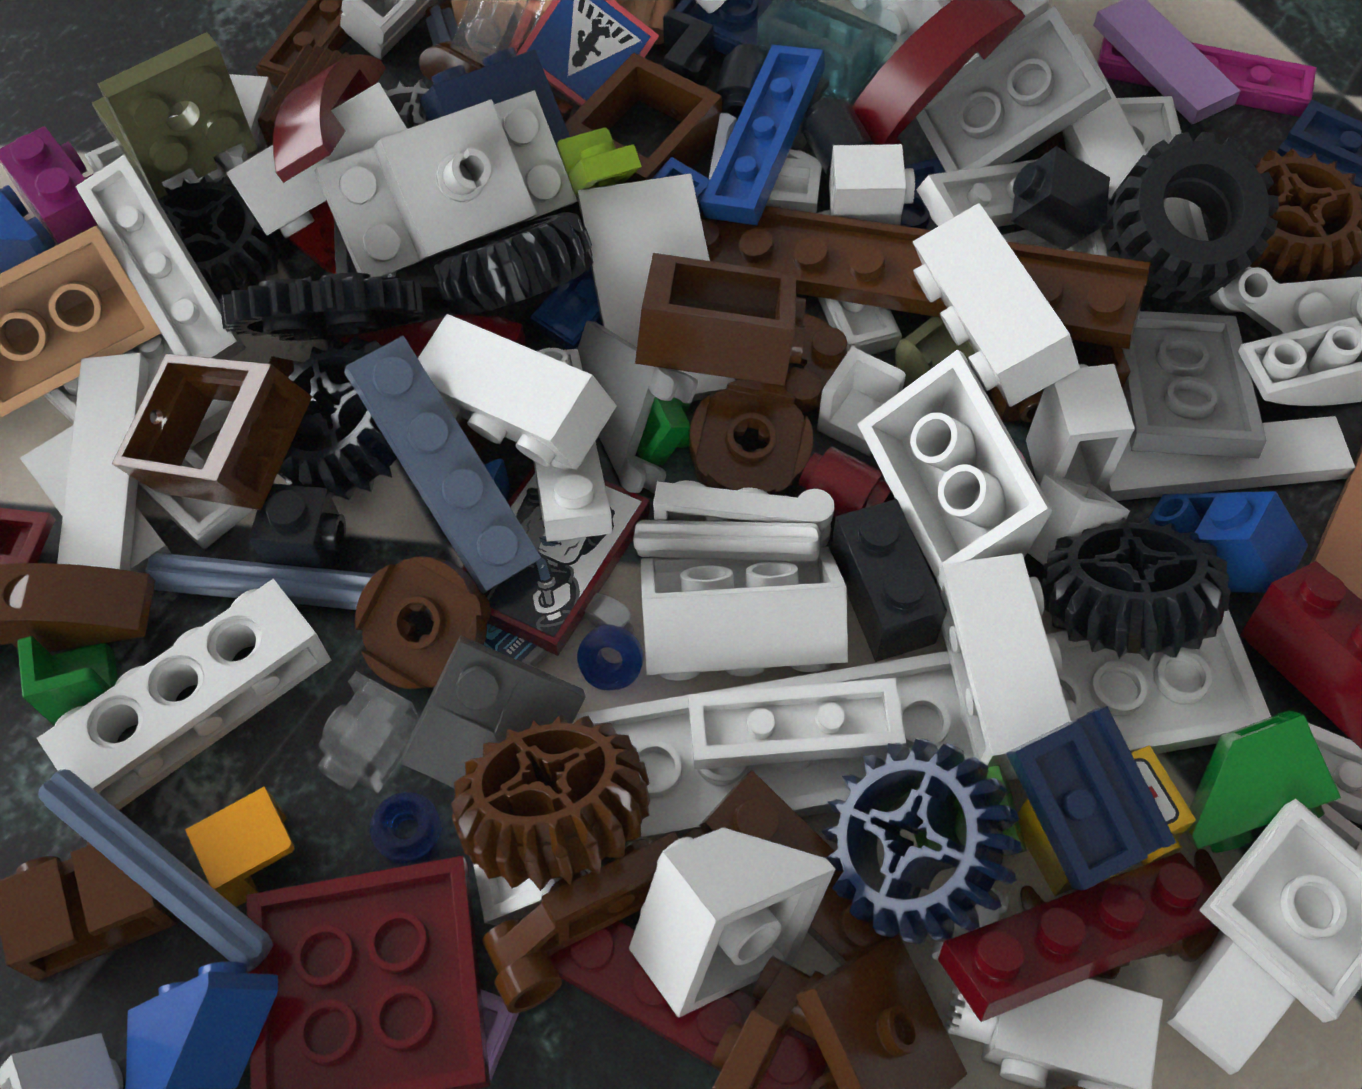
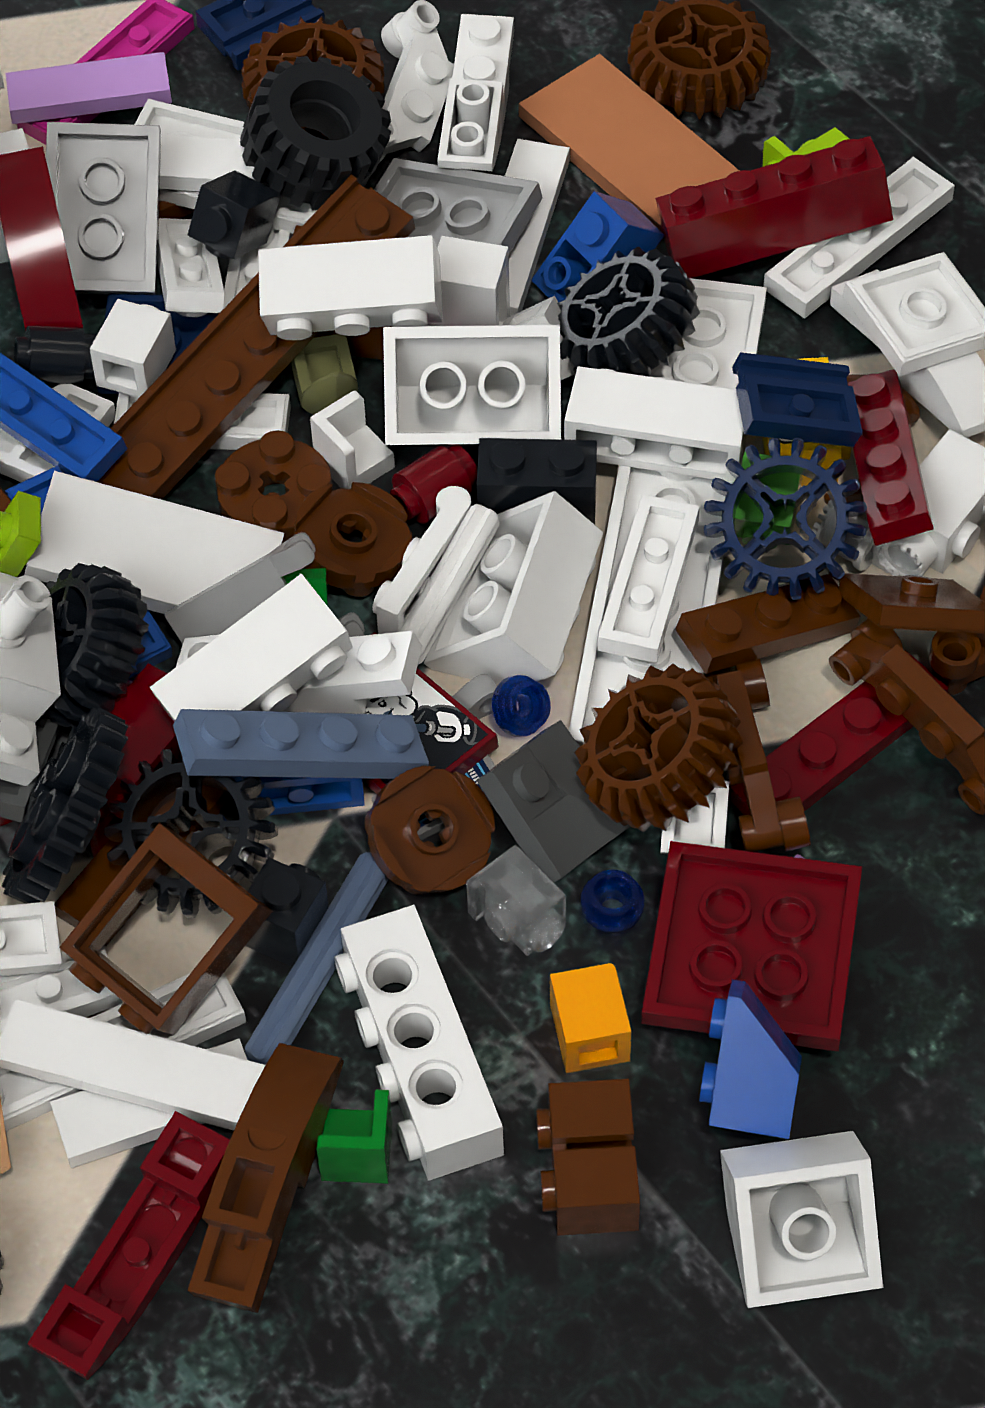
camera: 70 degrees left, 5 degrees down
(155, 869) = (598, 1062): sand blue axle -> none
(720, 320) = (194, 512): reddish brown window -> none
(723, 912) = (793, 667): white slope -> none
(1254, 777) = (808, 307): green slope -> none

